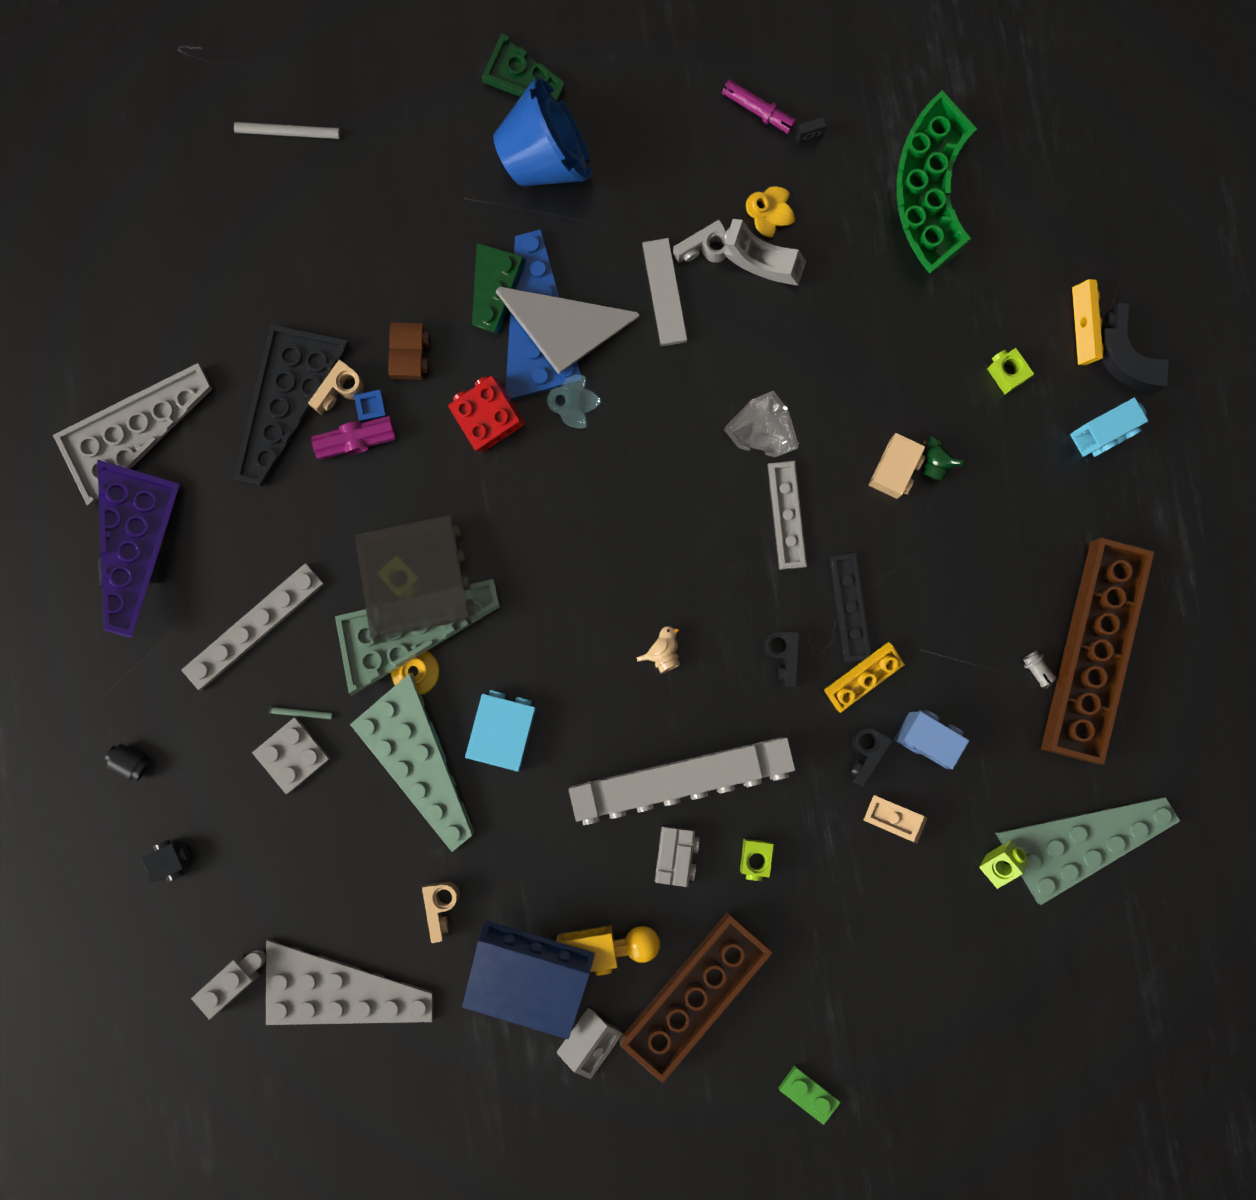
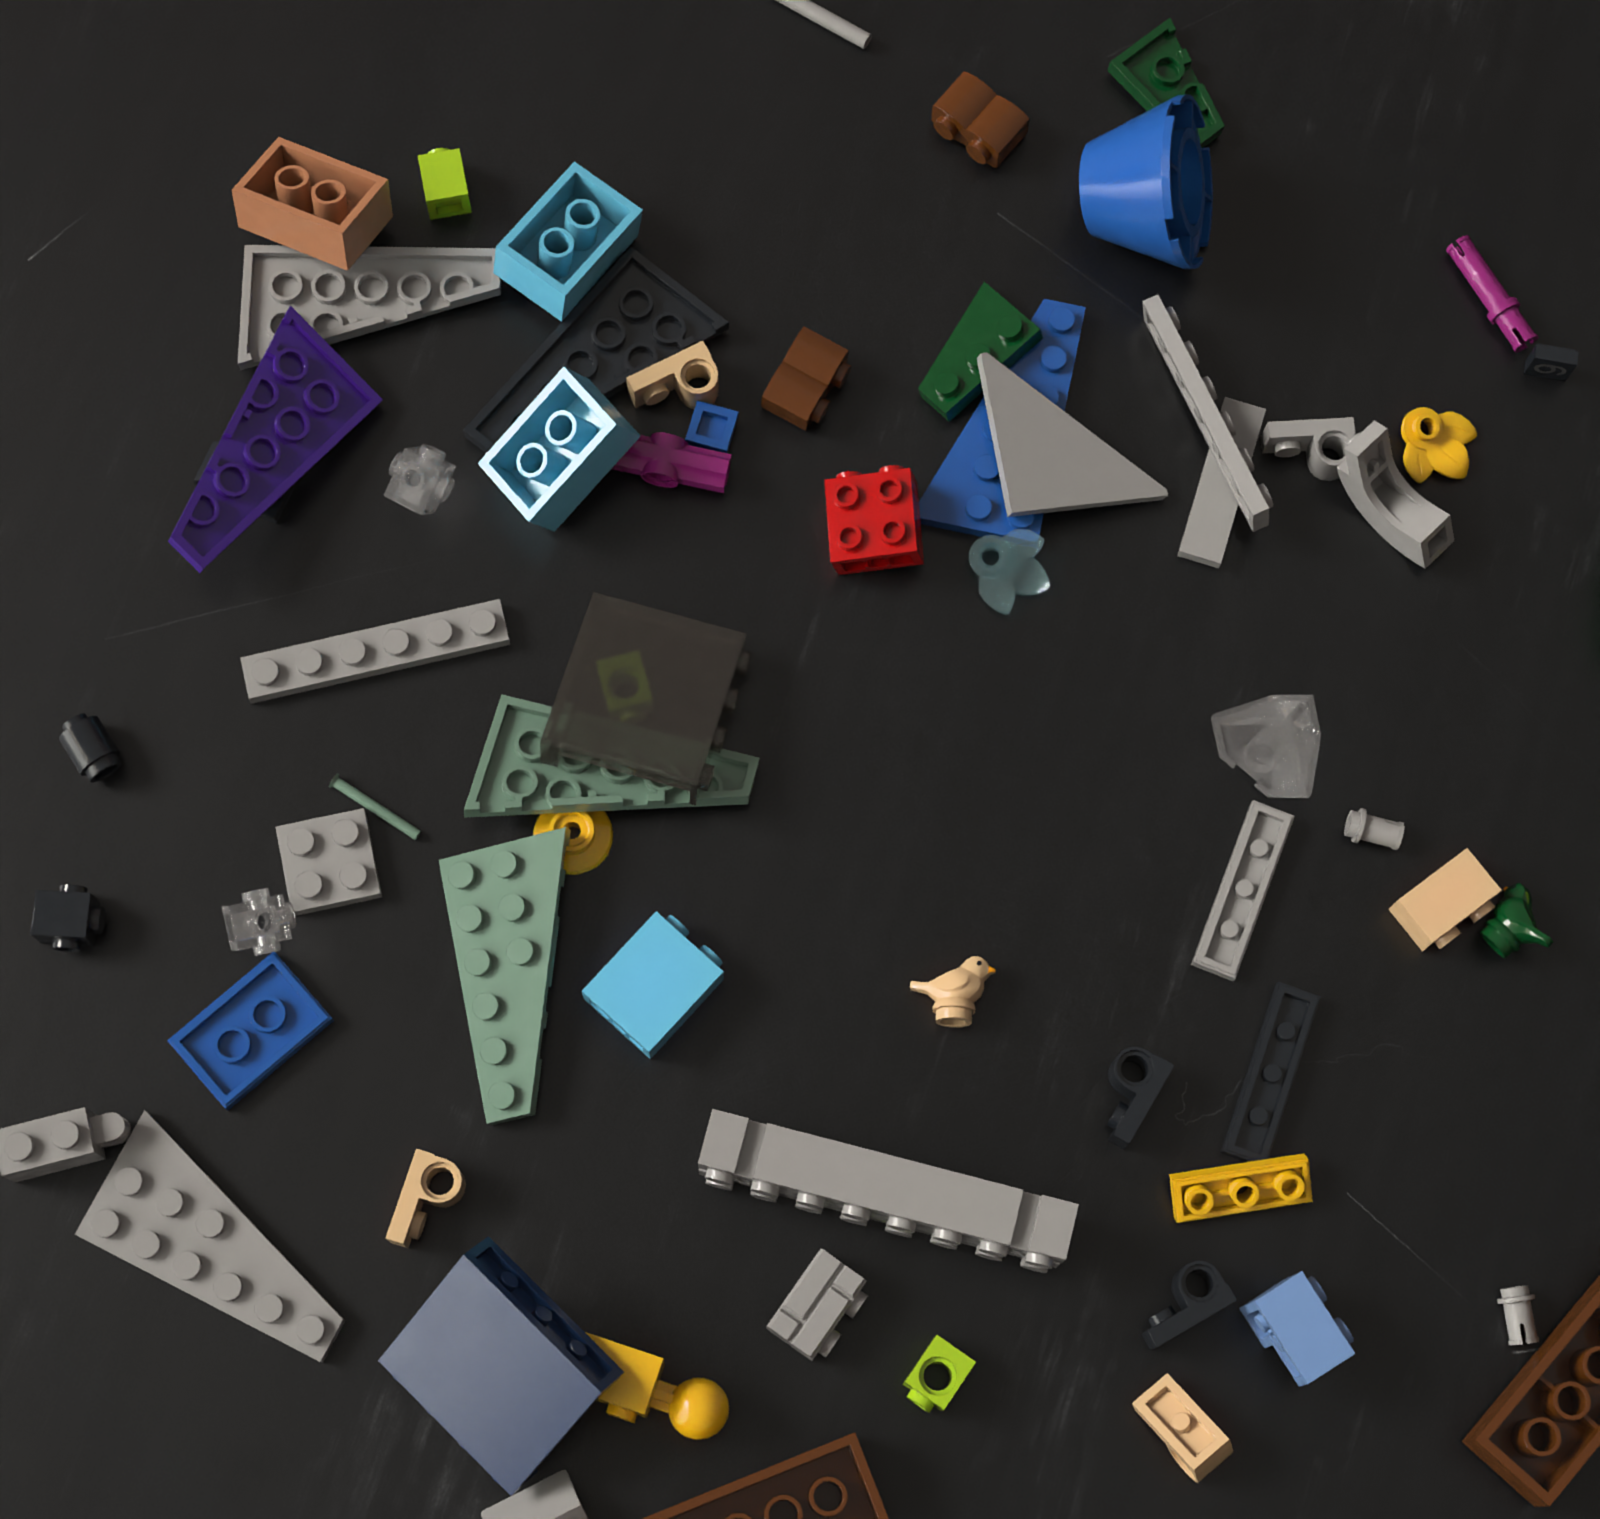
camera: 25 degrees right, 10 degrees down
(77, 392) = (312, 203): none -> nougat brick
(145, 340) = (444, 183): none -> lime brick
(225, 519) = (420, 479): none -> clear brick
(232, 340) = (567, 241): none -> medium azure brick
(261, 810) = (243, 926): none -> clear brick
(292, 464) = (558, 449): none -> medium azure brick
(299, 868) = (250, 1030): none -> blue tile
(426, 149) = (979, 120): none -> reddish brown brick
(646, 263) = (1215, 426): none -> light grey plate
(840, 446) = (1373, 829): none -> light grey pin

